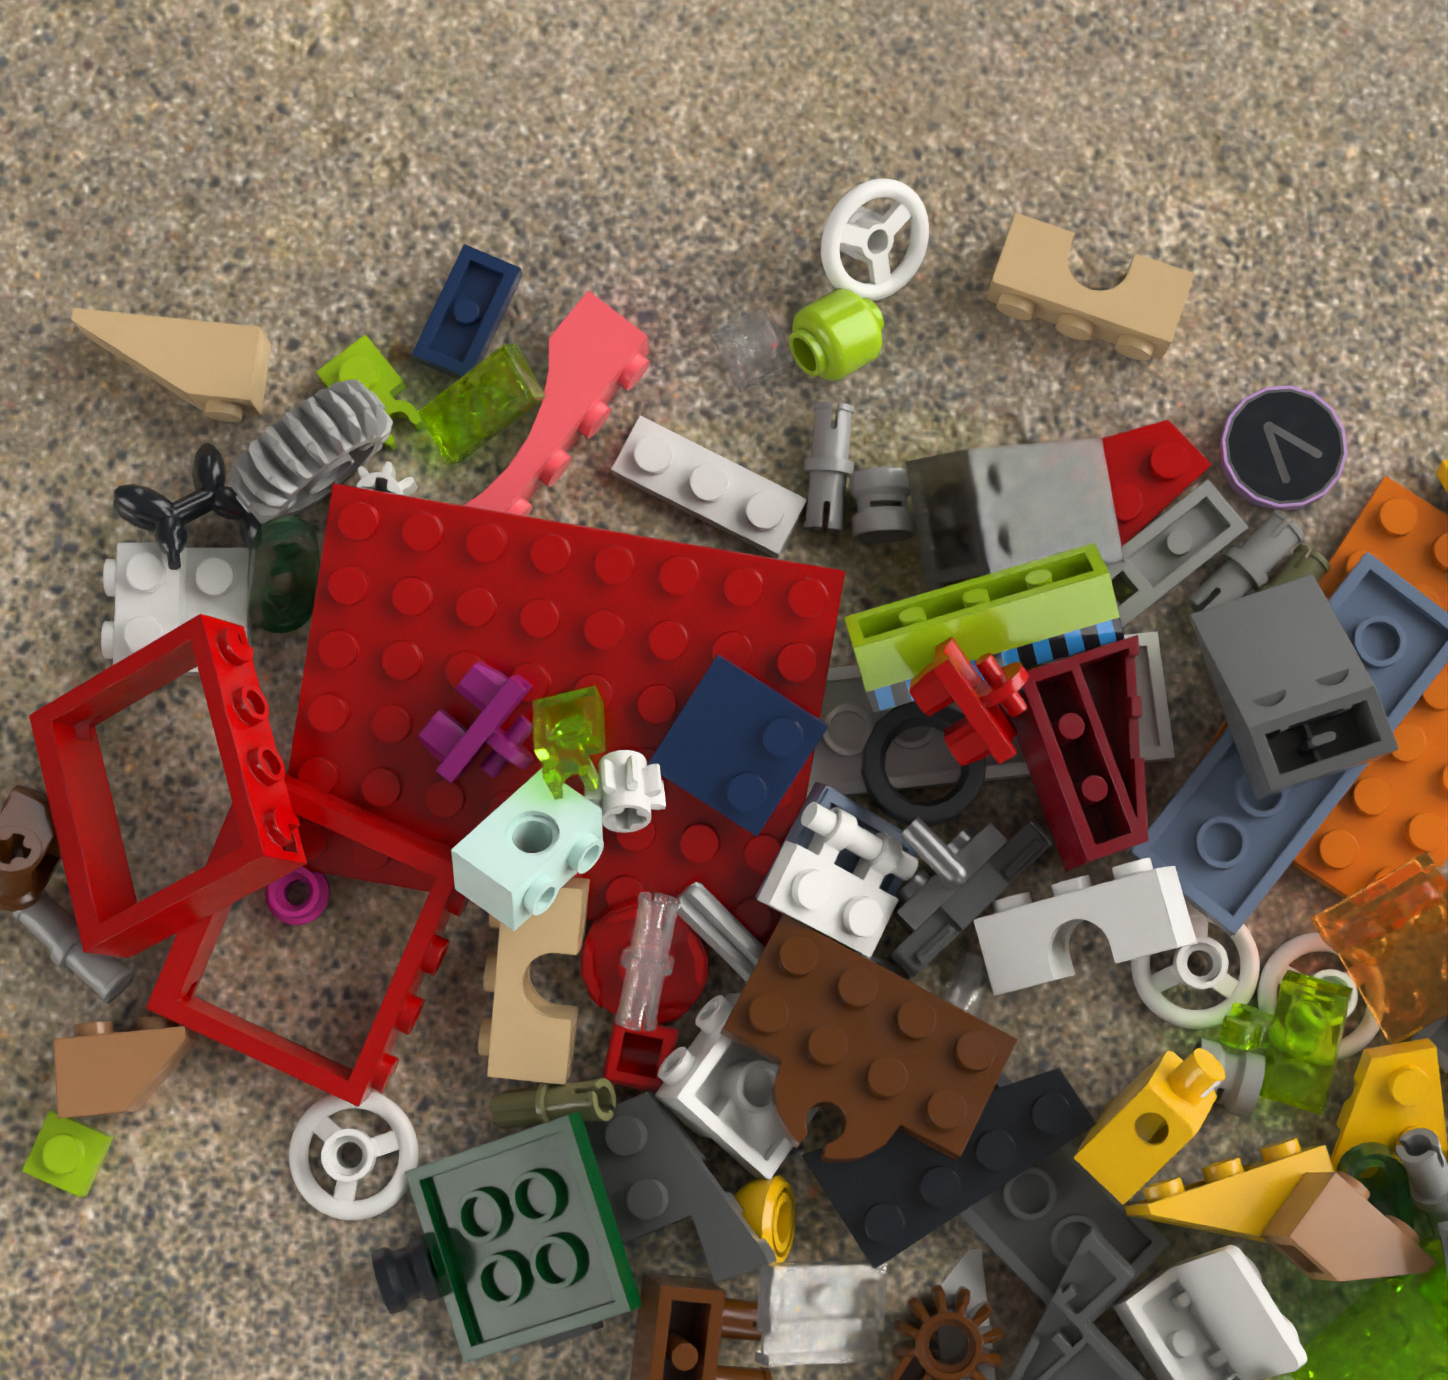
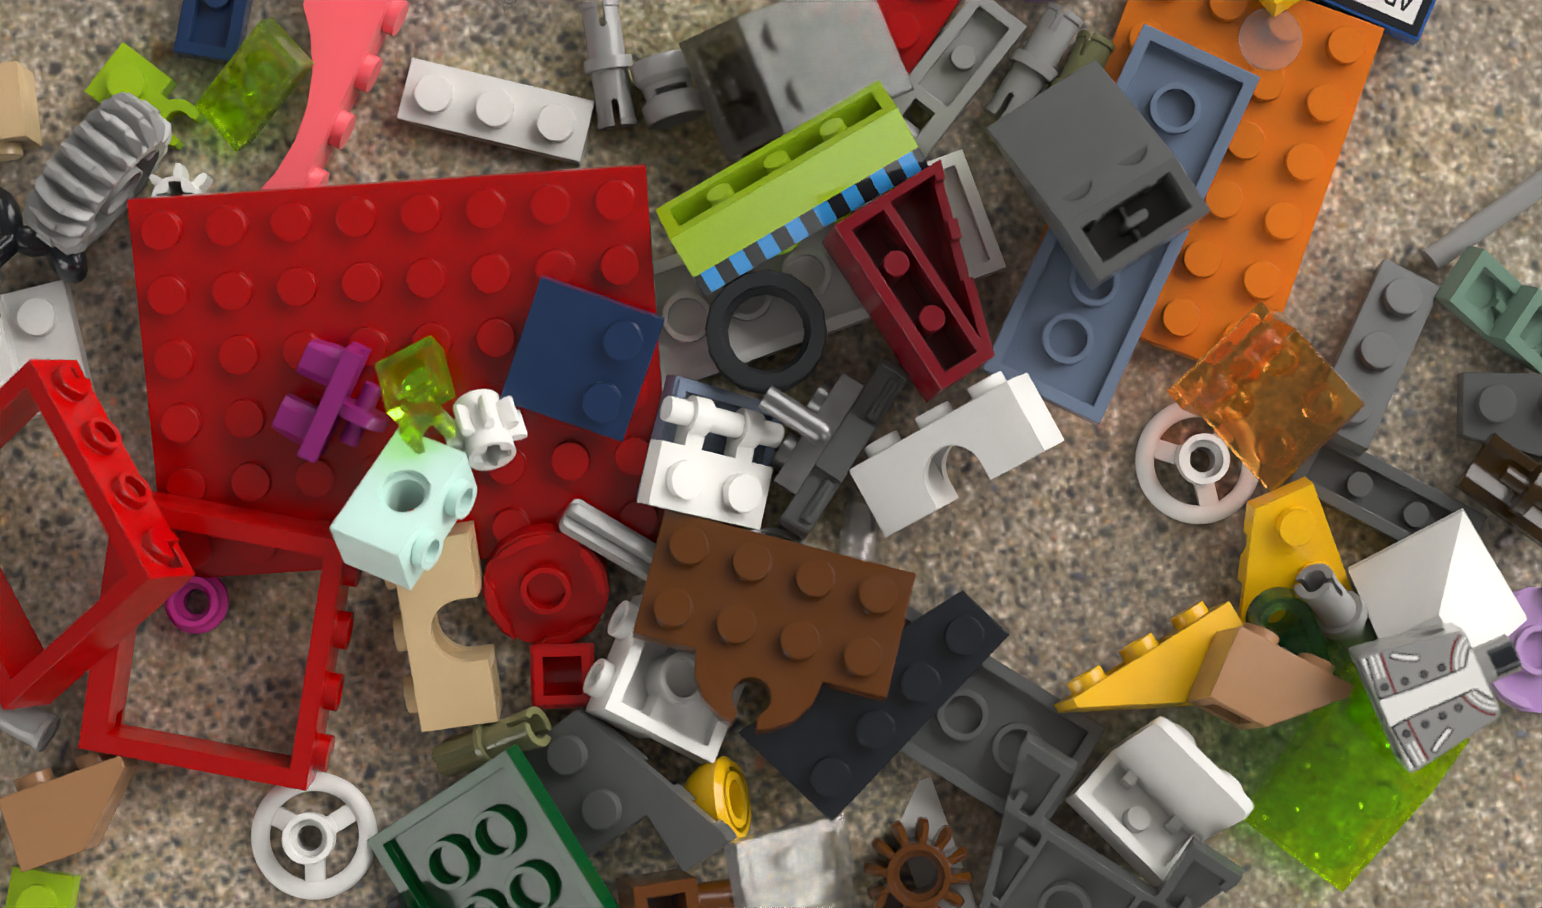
camera: 15 degrees left, 5 degrees up
(283, 569) = (102, 293): clear green plate -> none
(647, 961) = (547, 585): clear pin -> none
(985, 724) = (804, 254): red hips -> none
(1150, 1121) = (1058, 620): yellow torso -> none
(1216, 977) = (1116, 476): white piece -> none
(1243, 1077) = (1121, 560): light grey wheel -> none
(1299, 1039) = (1182, 506): clear neon green plate -> none

